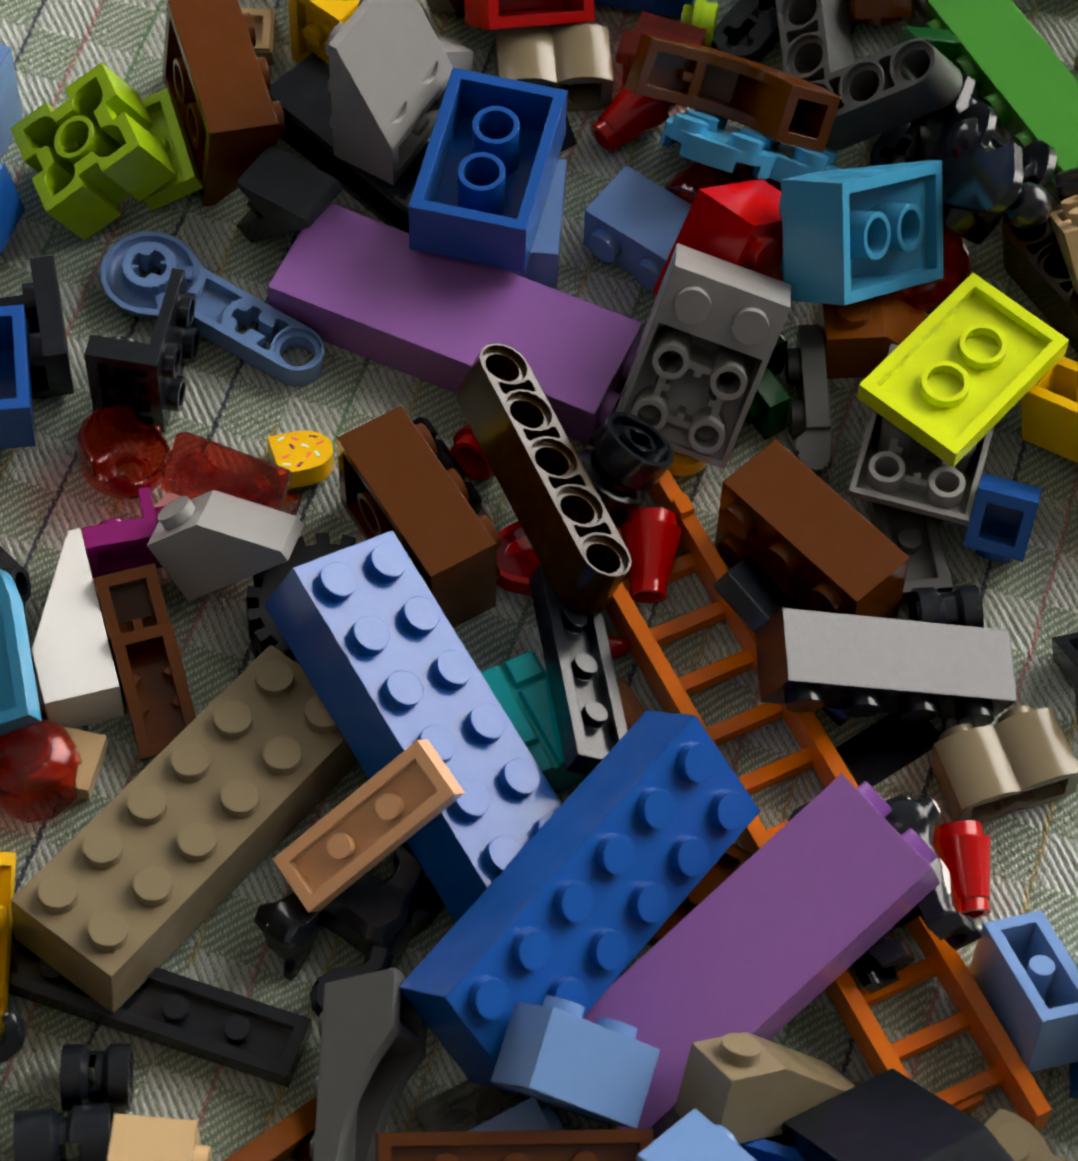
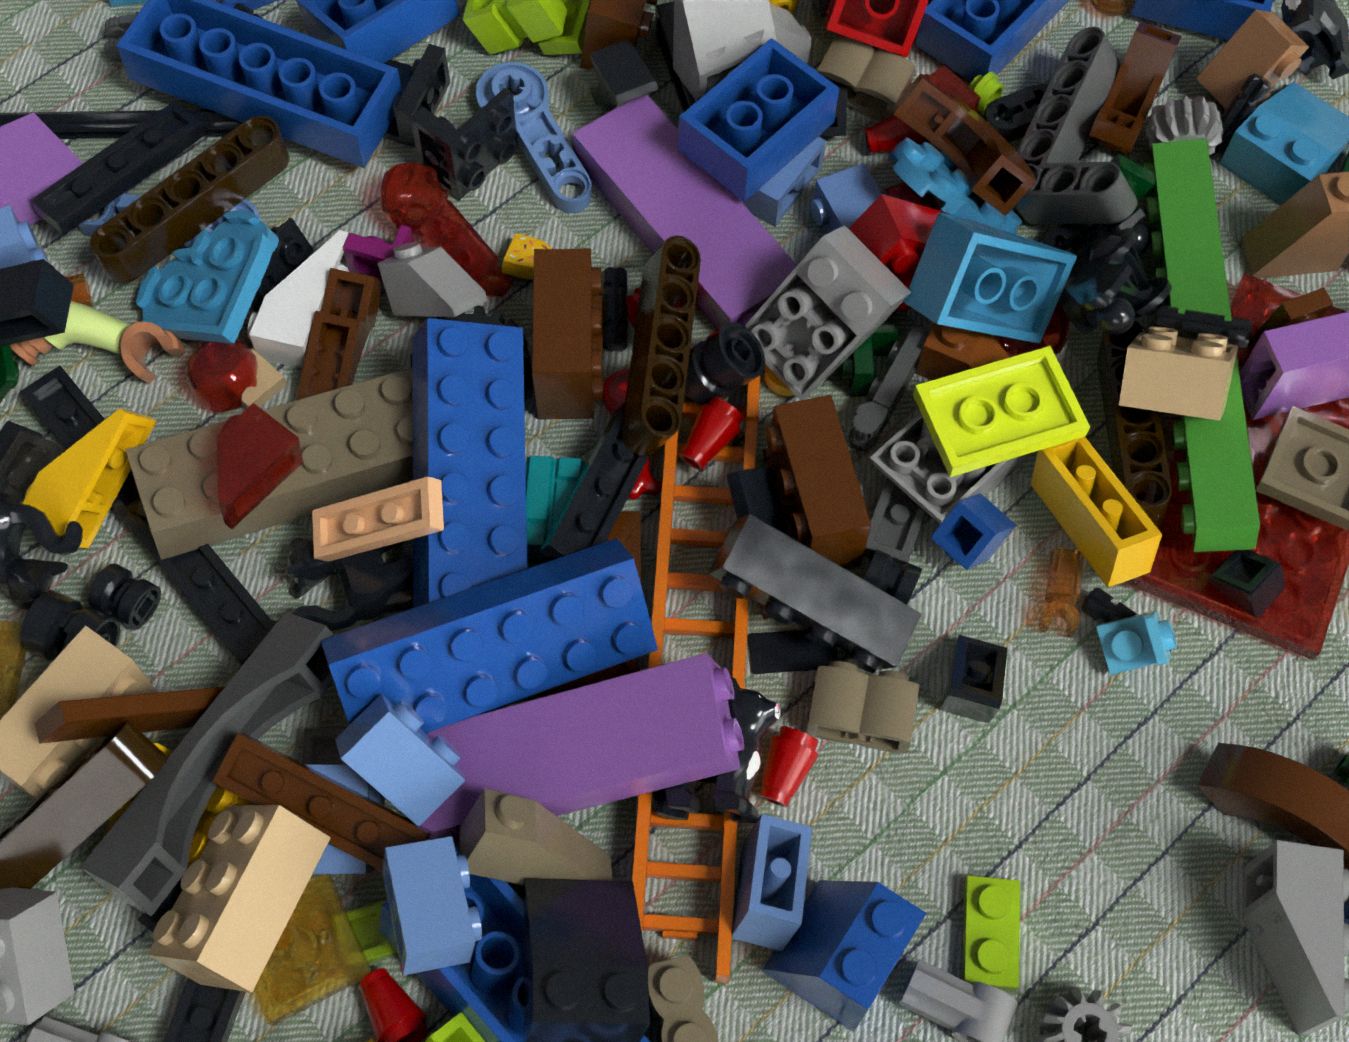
camera: 30 degrees right, 5 degrees up
(182, 831) = (252, 461): none -> clear red slope

